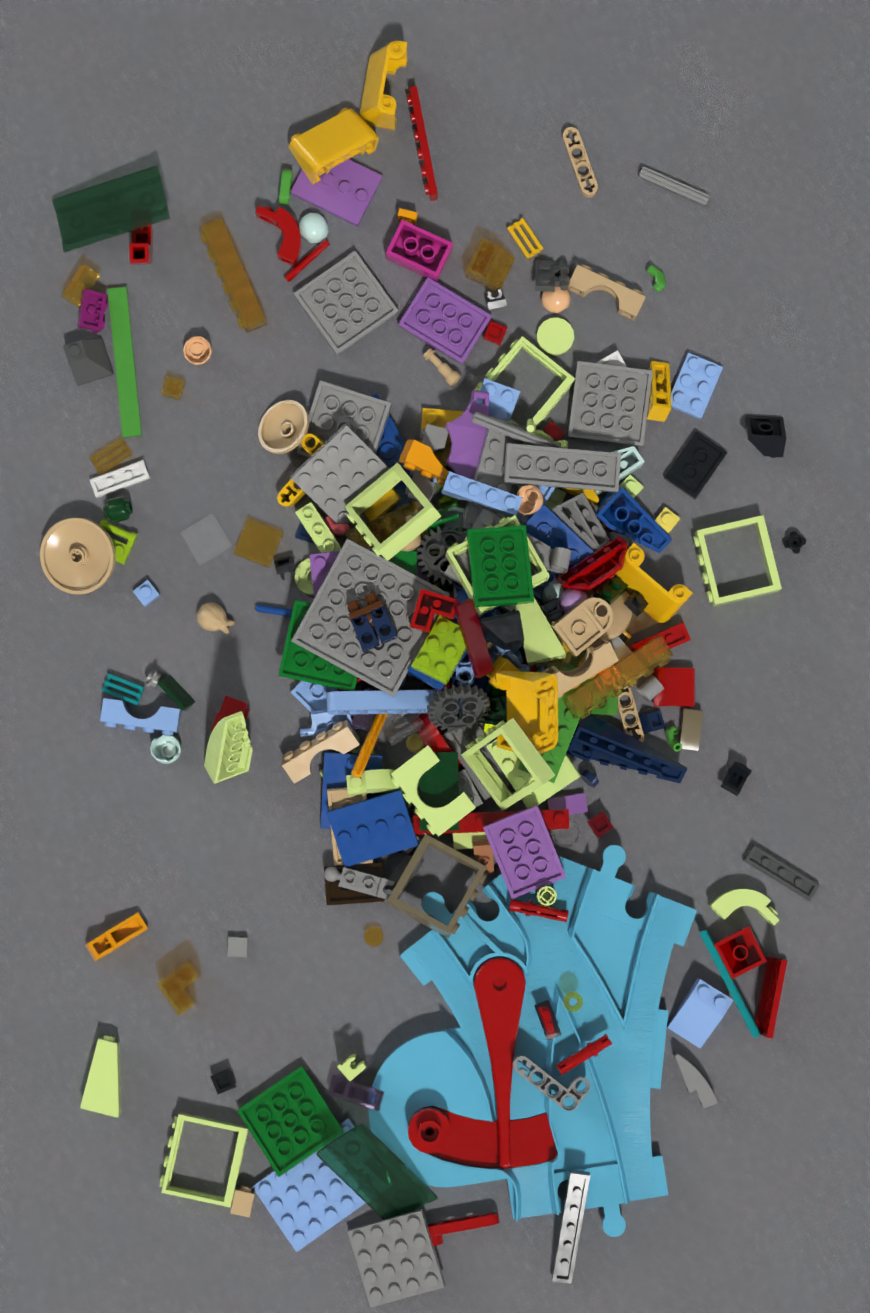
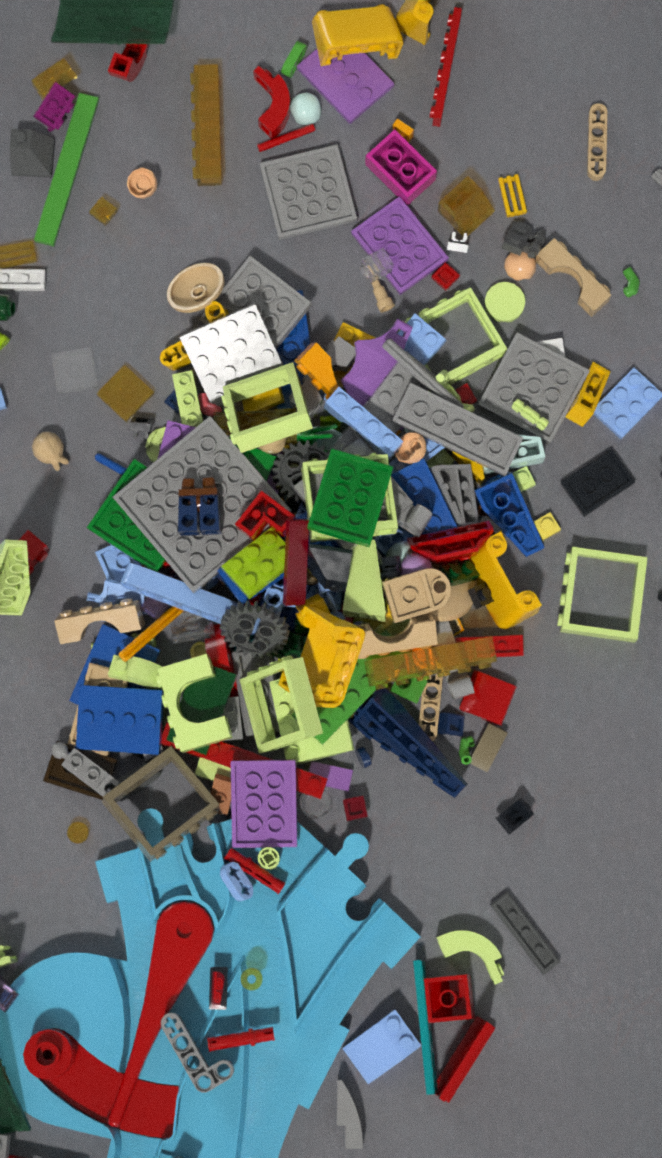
camera: 30 degrees right, 5 degrees down
(433, 347) = (376, 265): none -> clear brick
(527, 926) = (236, 881): none -> light blue beam
(616, 428) = (530, 414): none -> yellowish green axle

